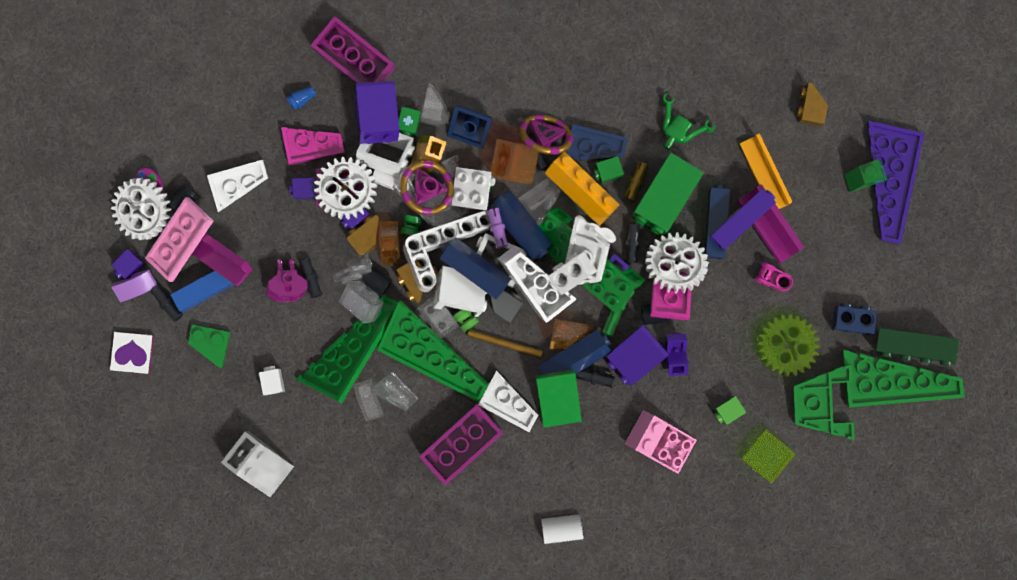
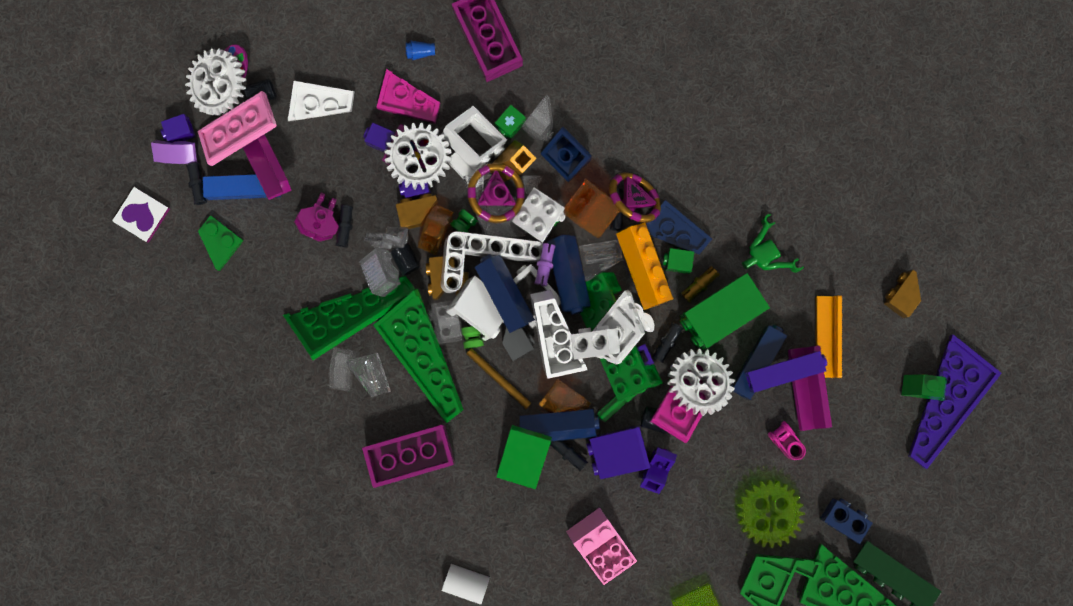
camera: 20 degrees right, 0 degrees up
(257, 464) = (206, 378): slope -> none
(271, 381) = (259, 306): white brick -> none
(376, 112) = (483, 97): dark purple slope -> none
(507, 403) = (472, 437): white wing -> none
(729, 411) = (682, 549): bright green brick -> none

